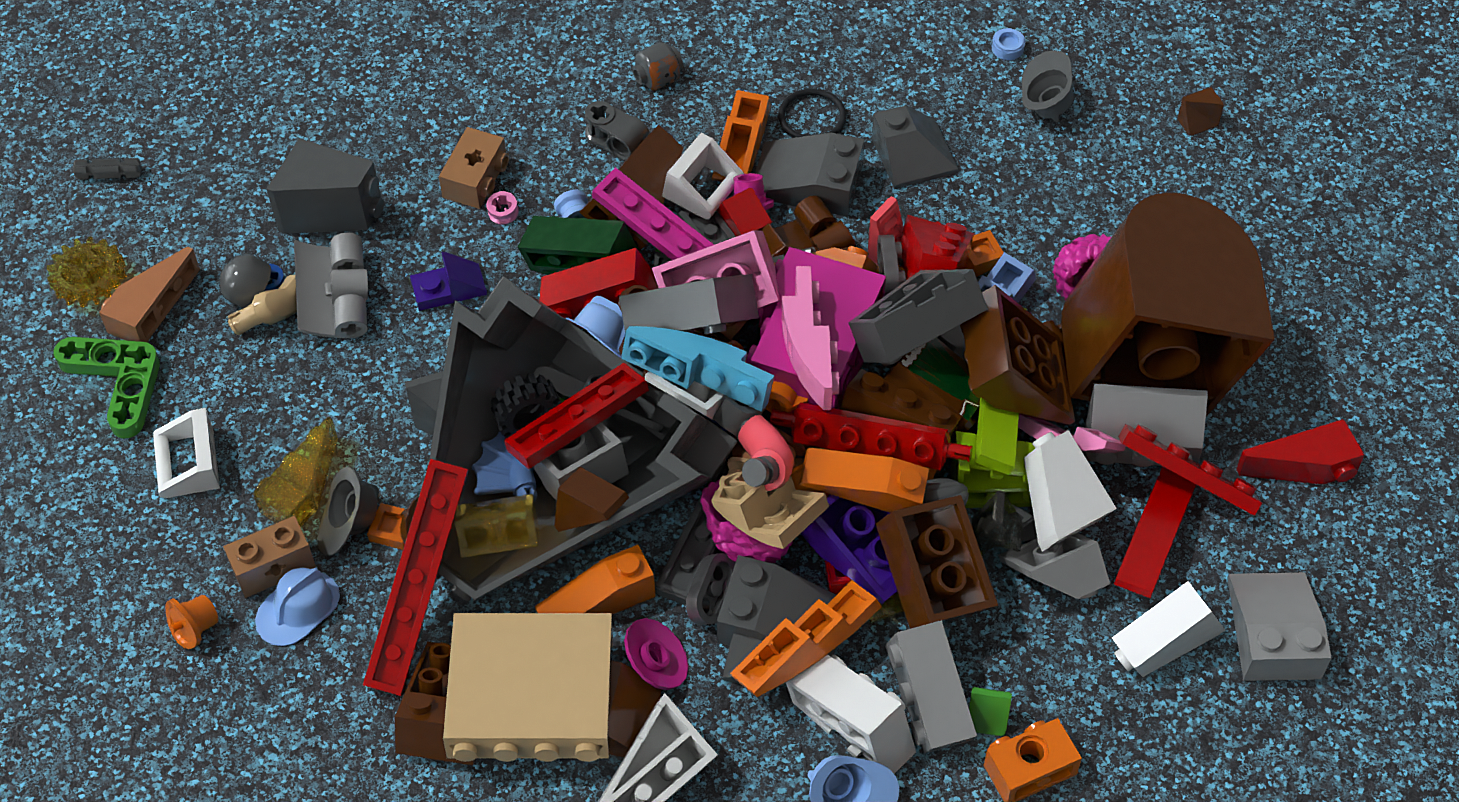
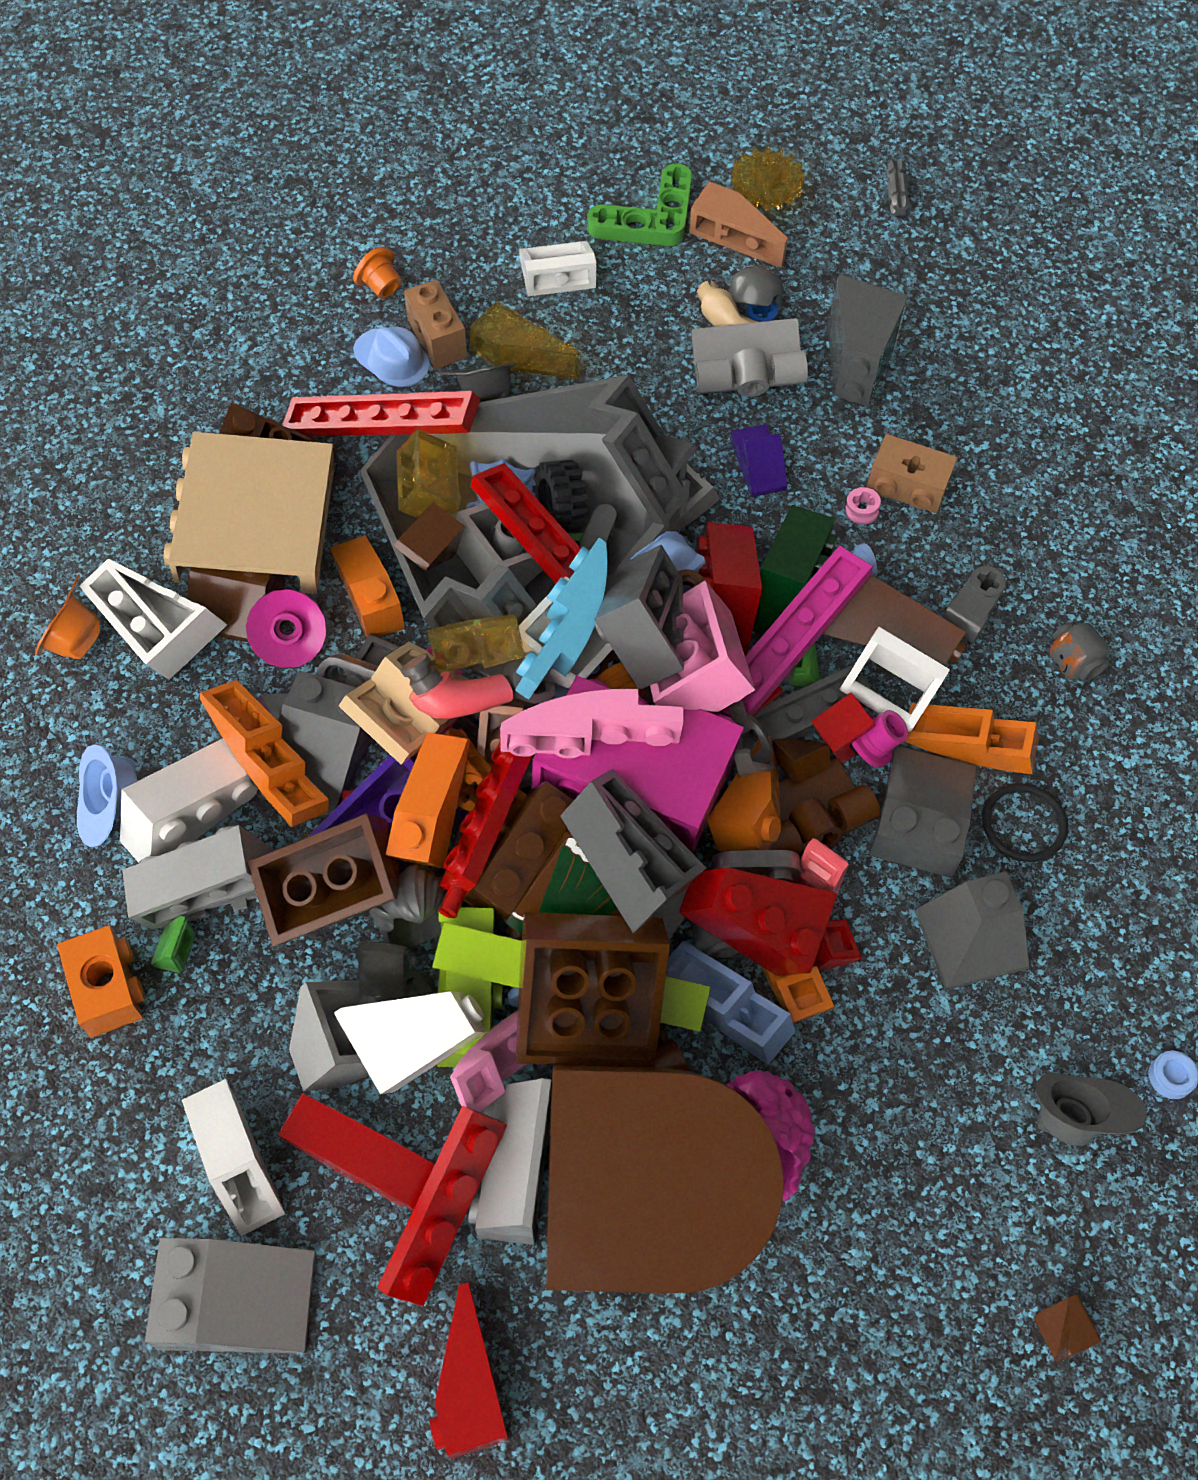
camera: 90 degrees right, 5 degrees up
(719, 431) = (476, 641): none -> clear yellow slope

